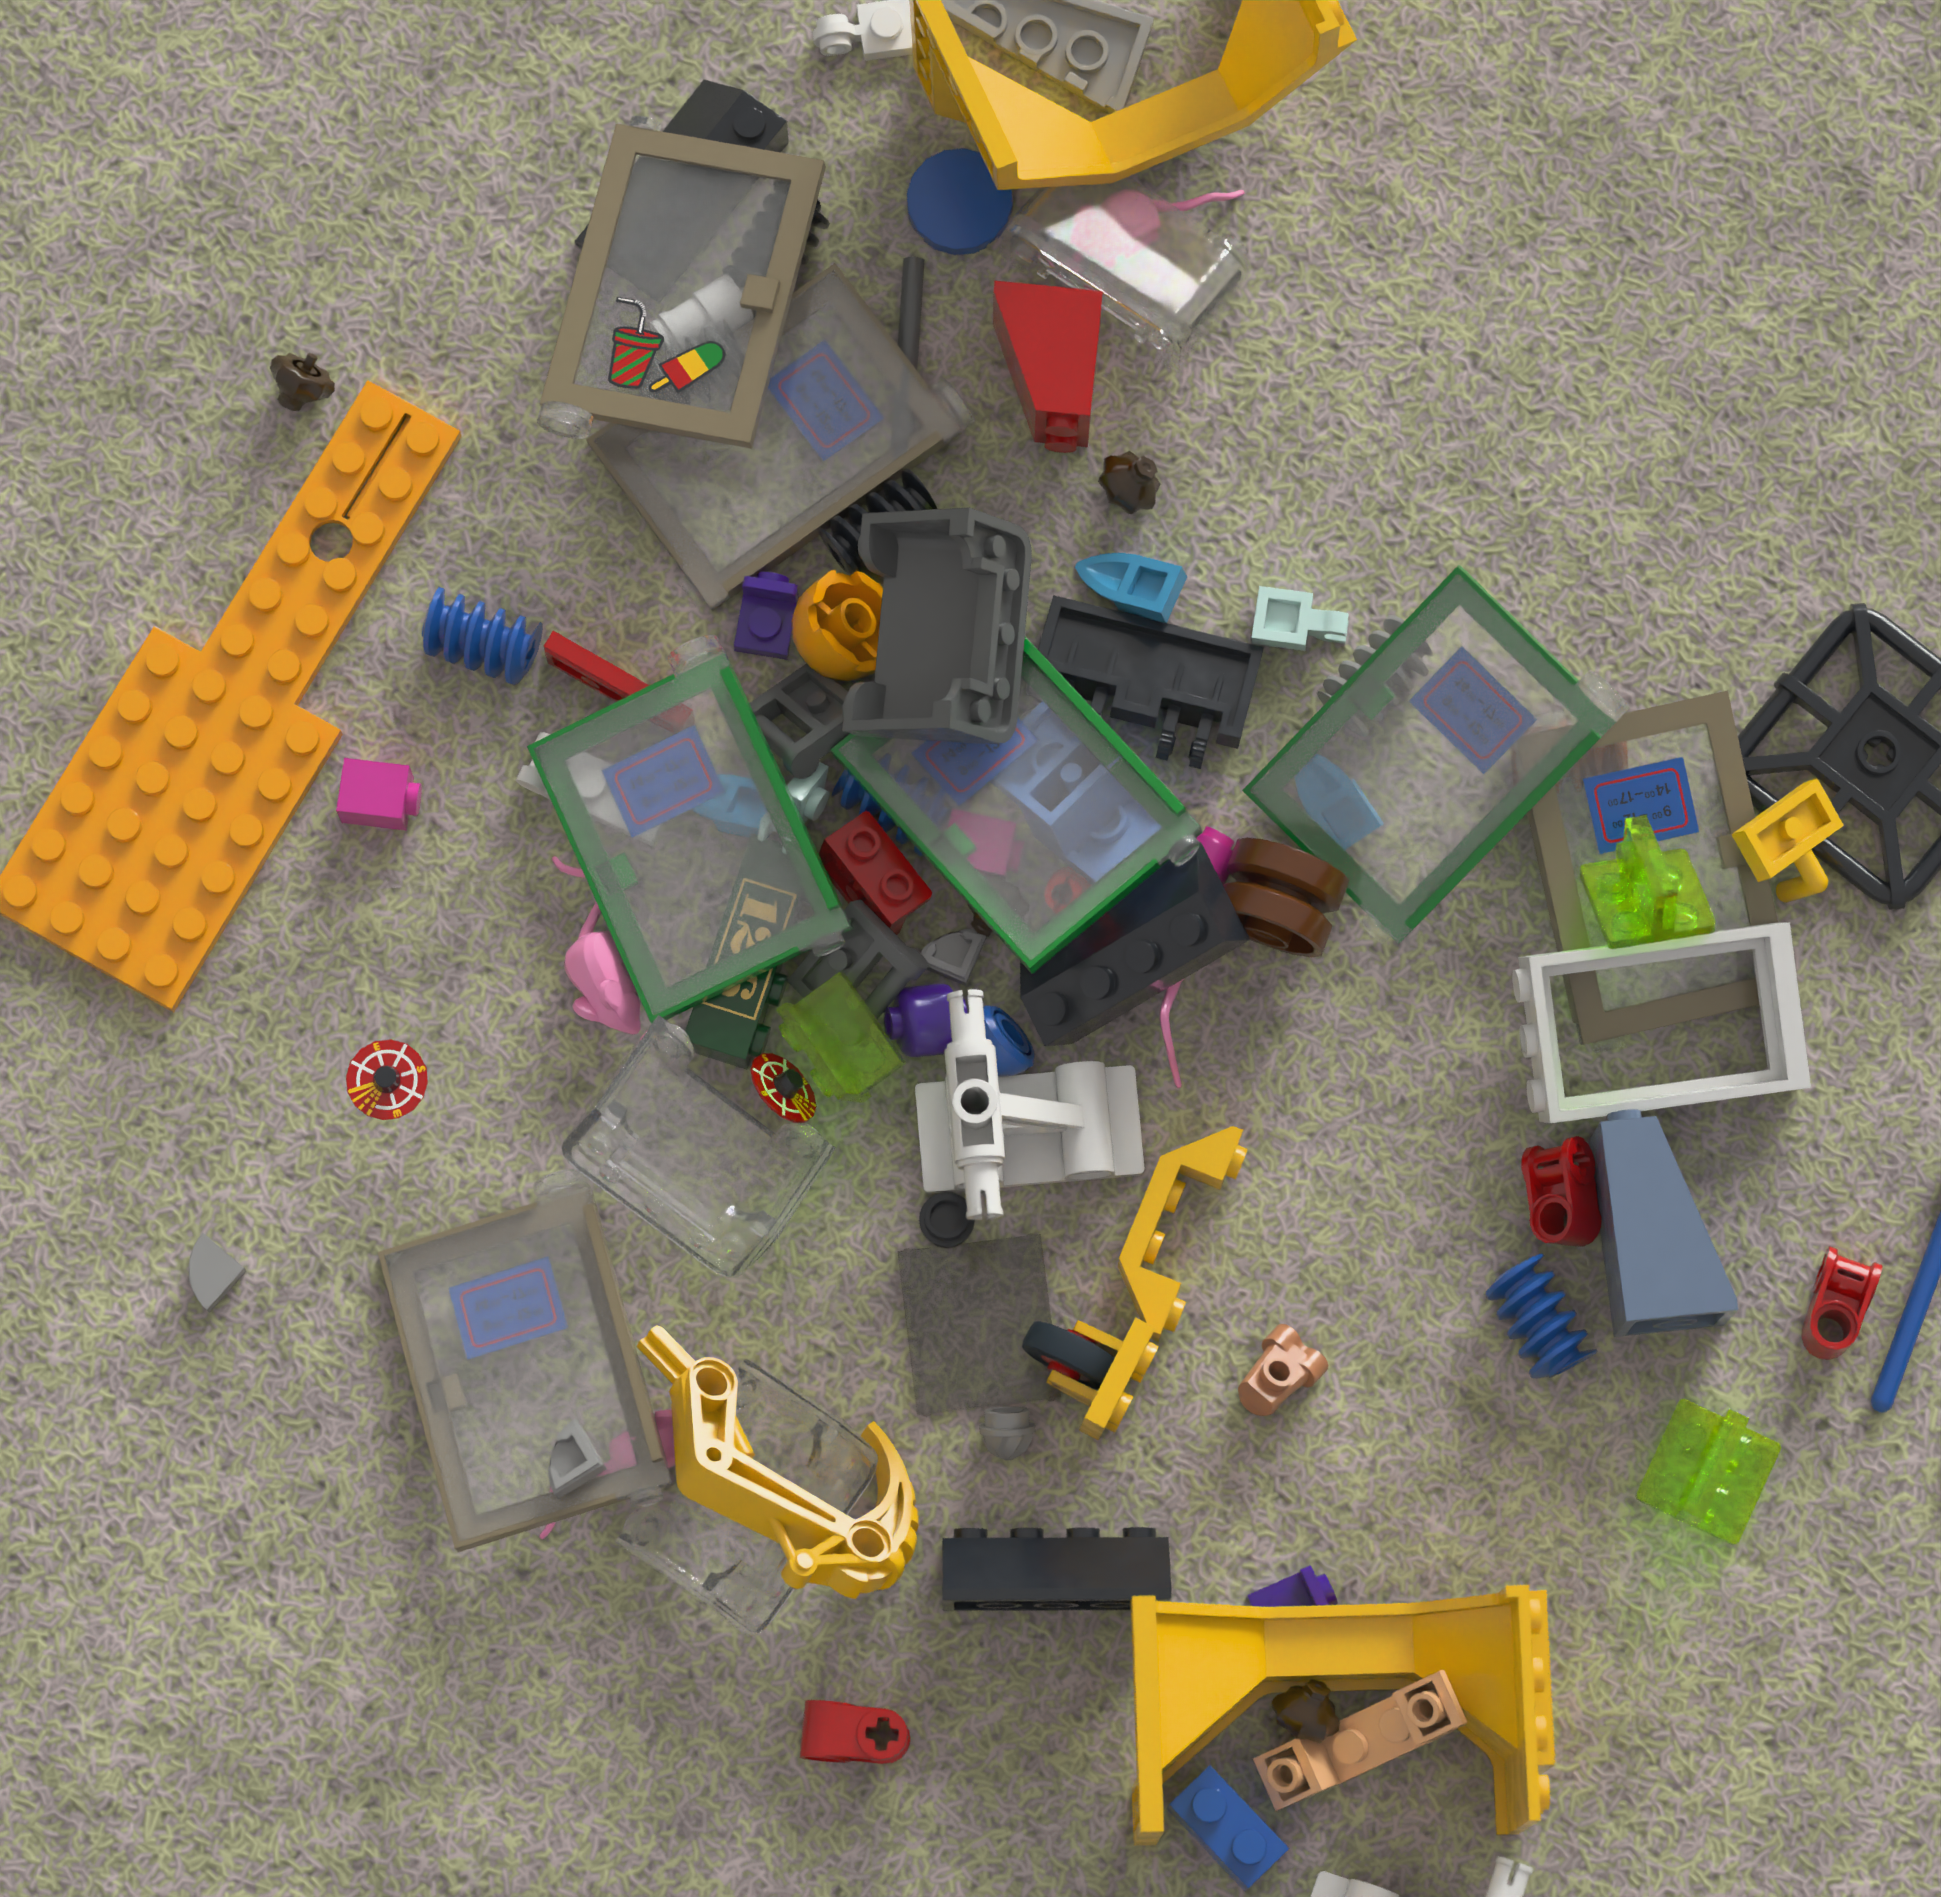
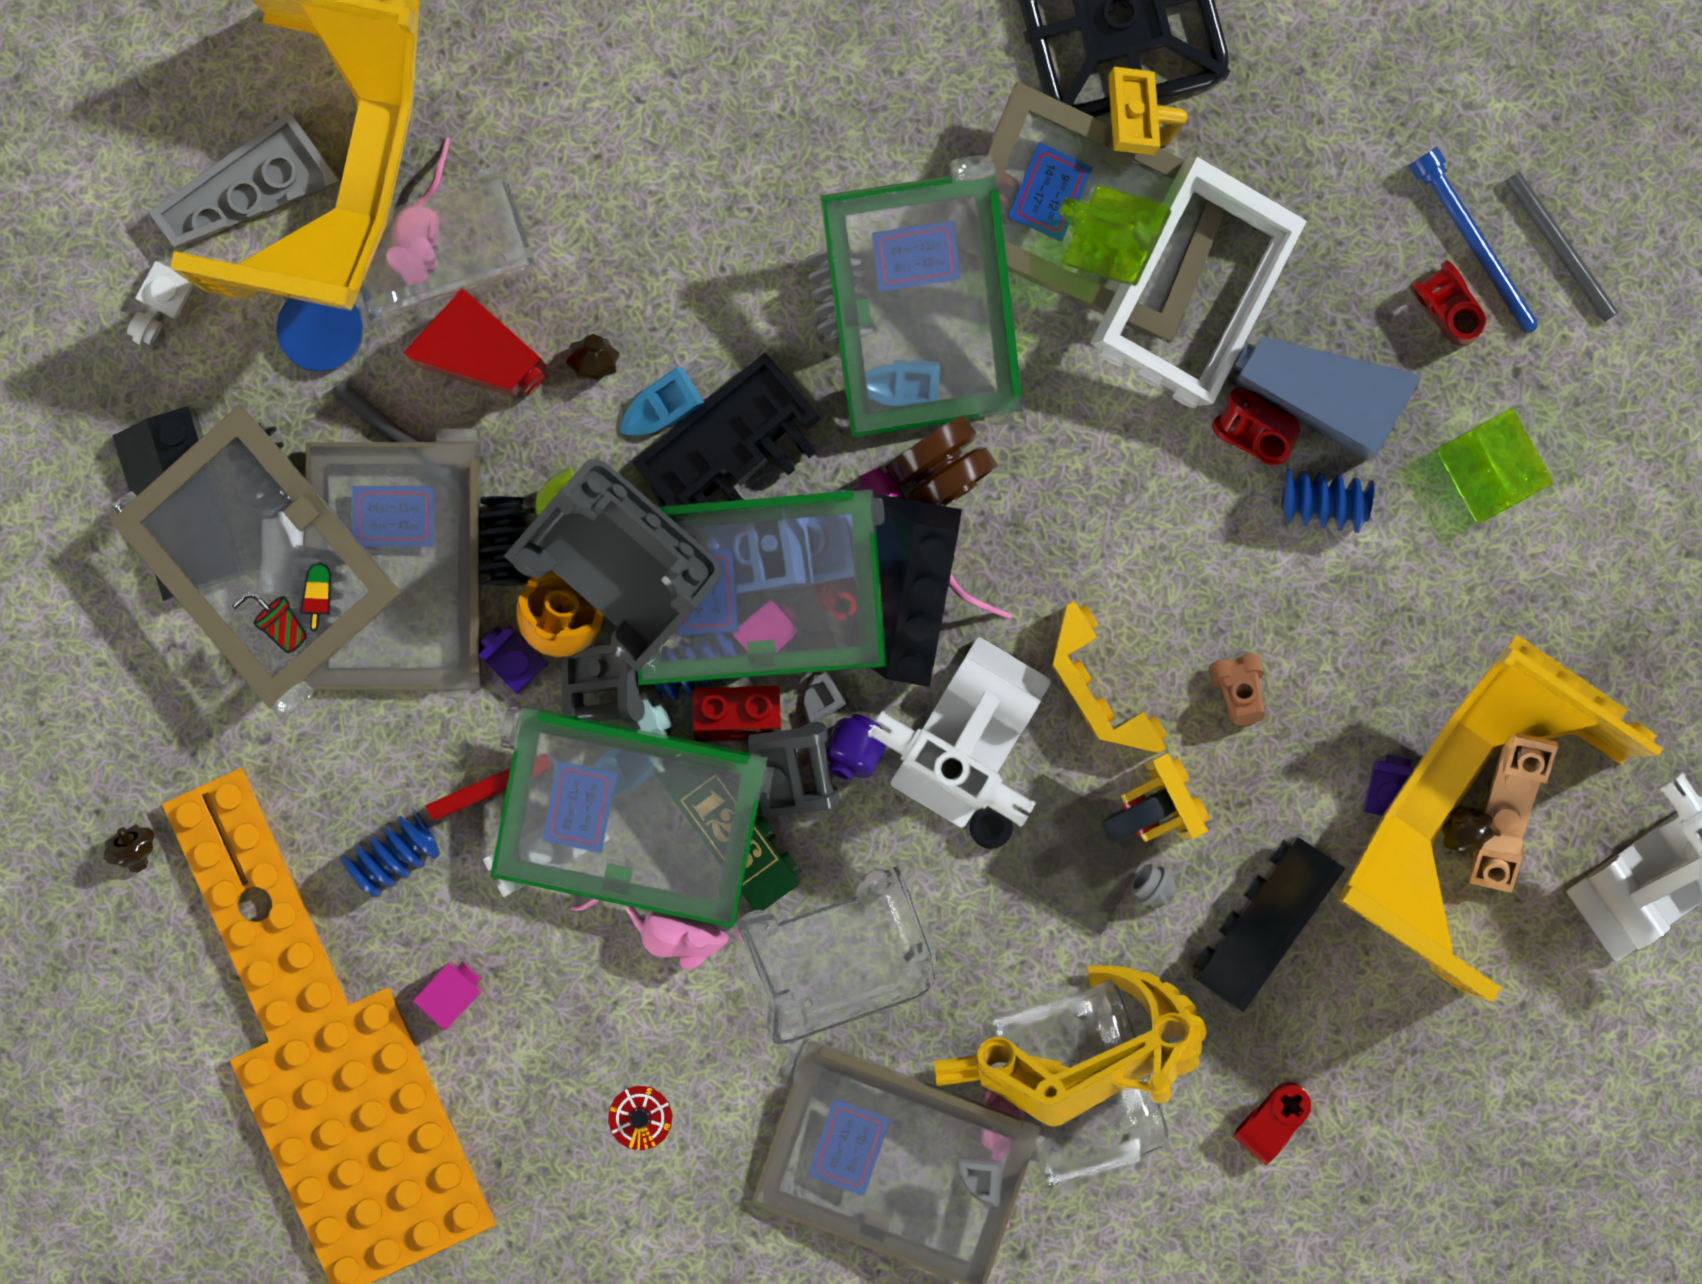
camera: 55 degrees left, 10 degrees up
(783, 1088) = (833, 871): piece -> none
(840, 1040) = (832, 815): clear neon green bracket -> none
(1012, 1045) = (905, 706): blue brick -> none
(1227, 1828) = (1502, 931): blue brick -> none
(1287, 619) = (758, 323): light aqua plate -> none

